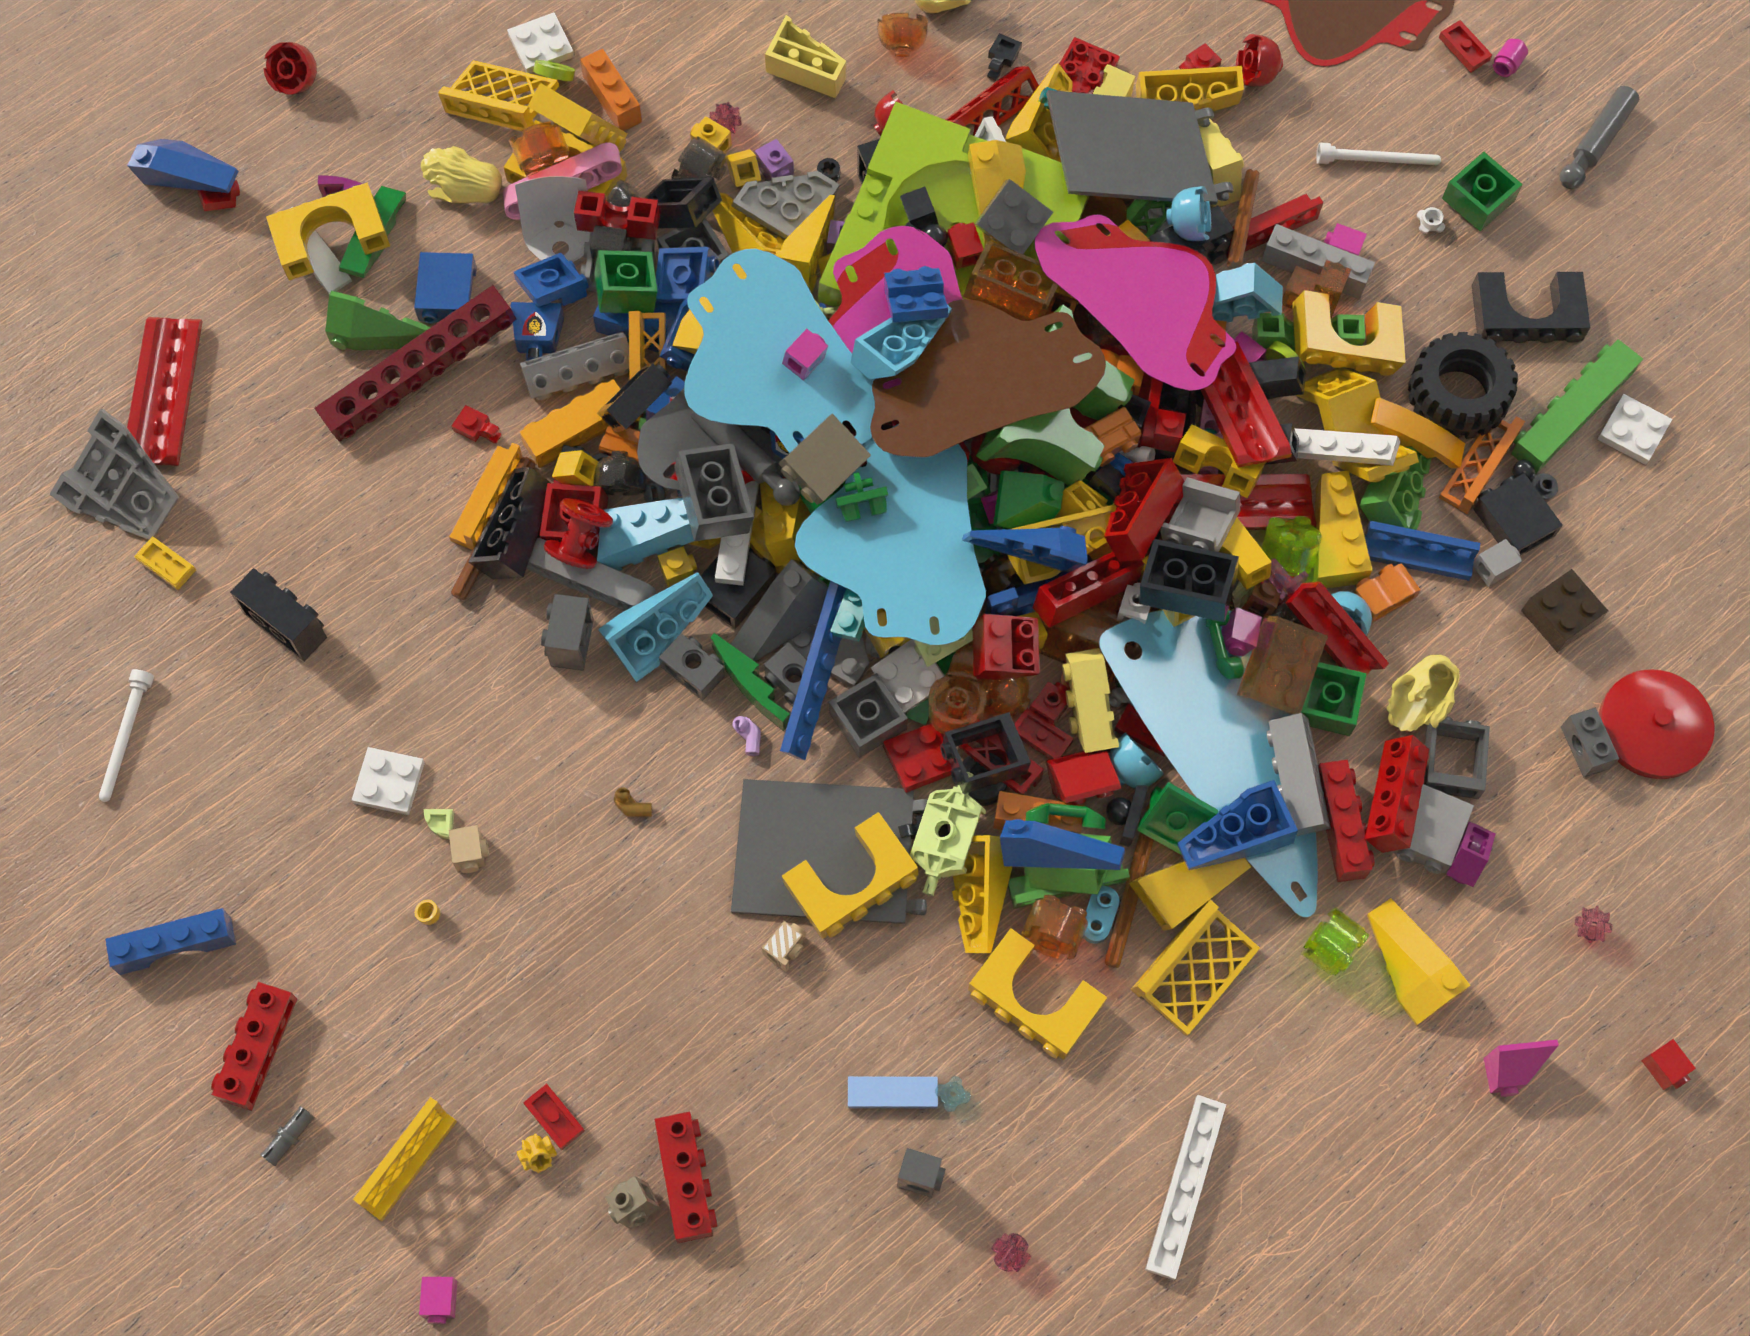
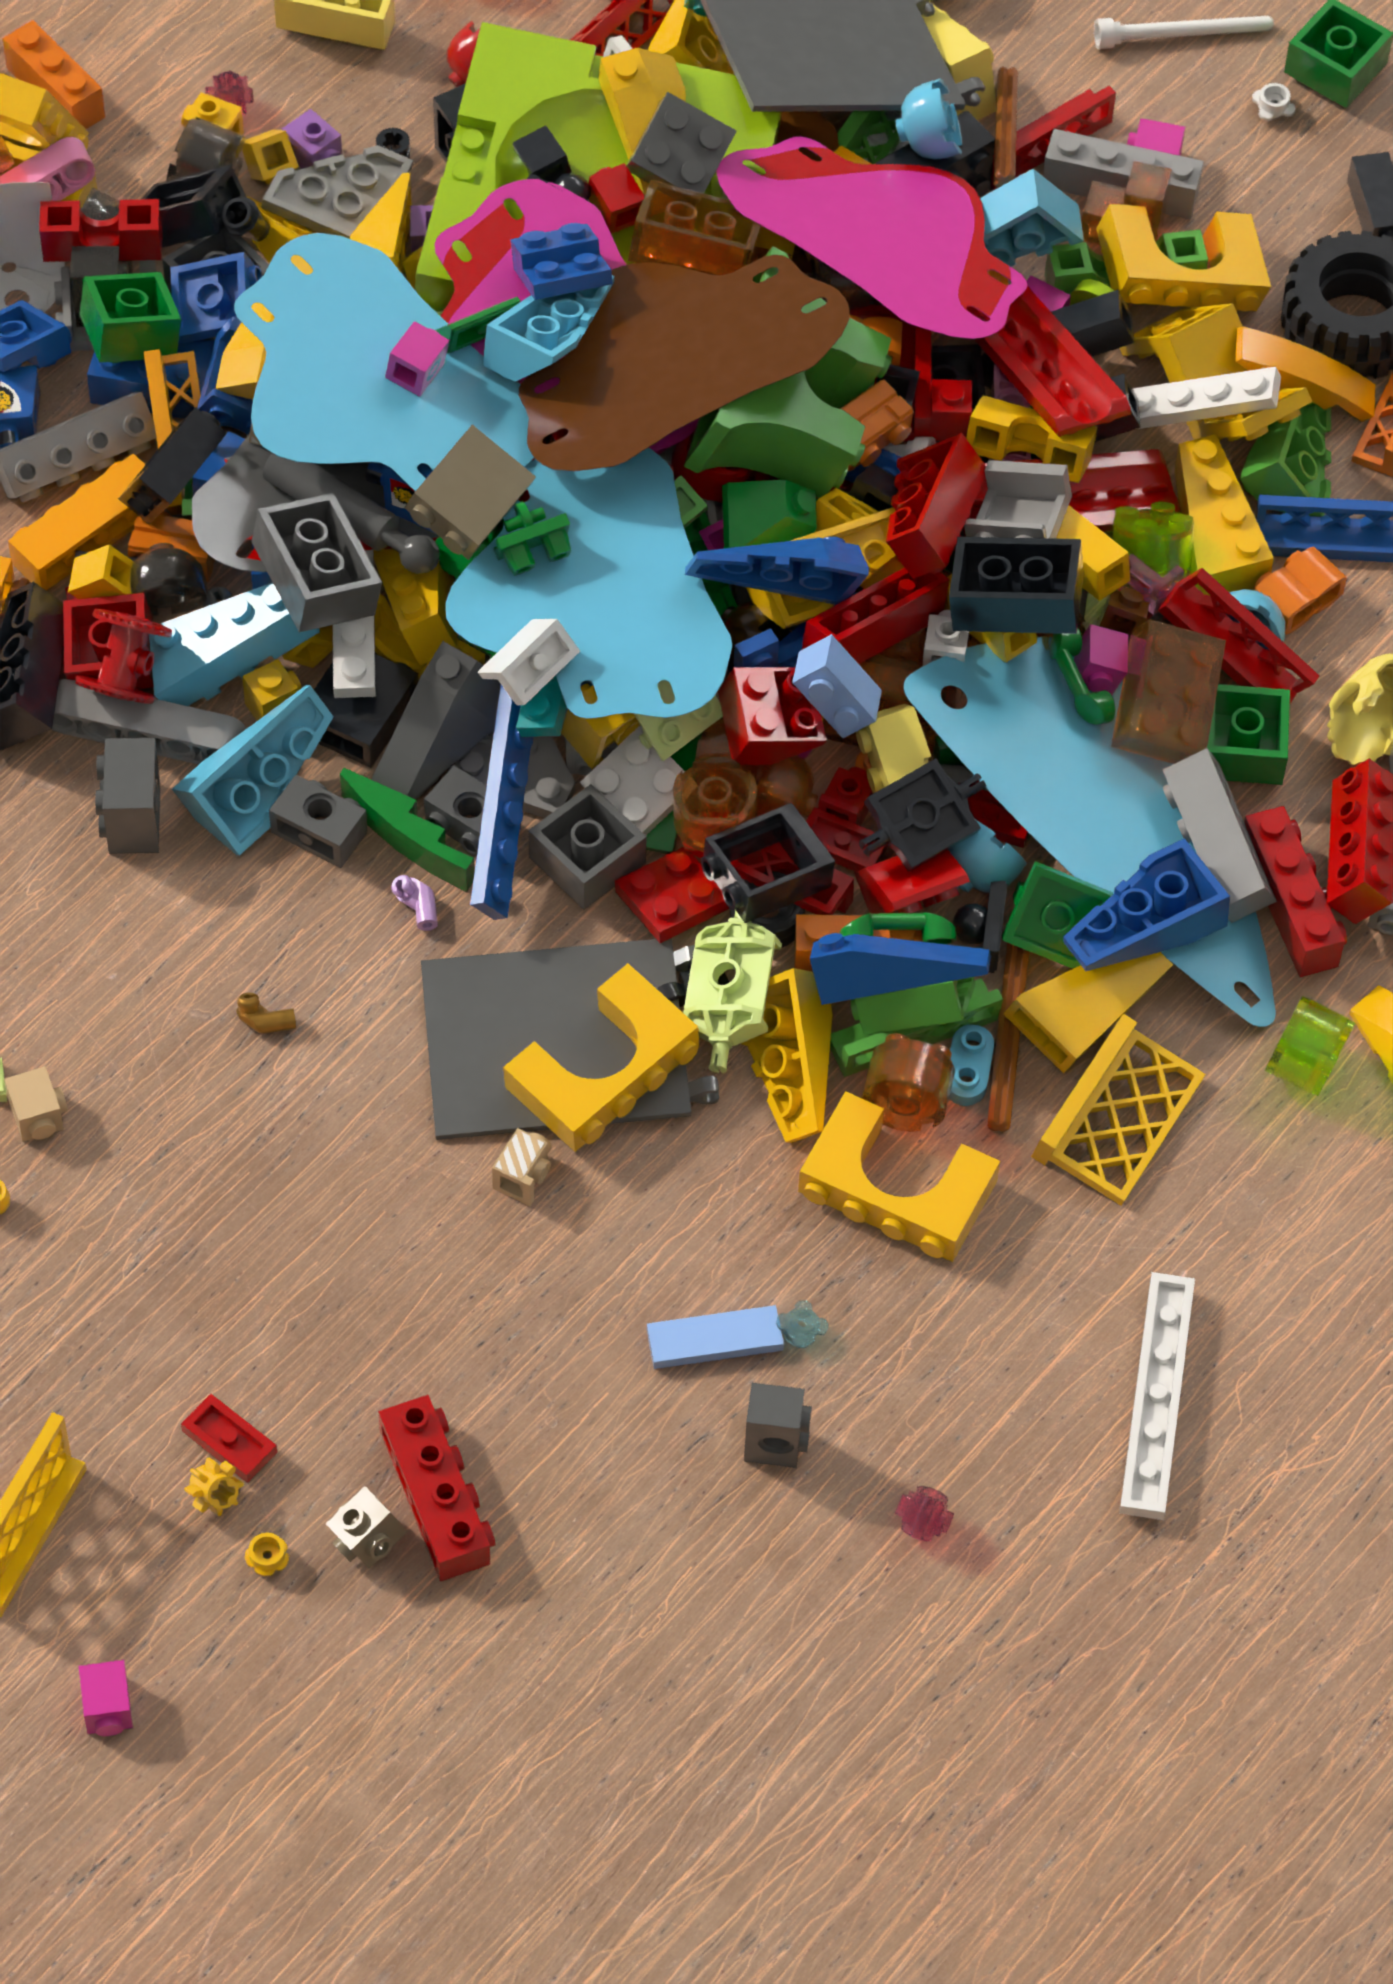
camera: 10 degrees left, 10 degrees down
(556, 1207) = (267, 1543): none -> yellow plate
(715, 218) = (244, 219): none -> black cone
(845, 588) = (531, 659): none -> white panel
(848, 332) = (473, 327): none -> green slope
(1052, 636) = (837, 686): none -> light blue brick
(1096, 736) = (922, 815): none -> black plate

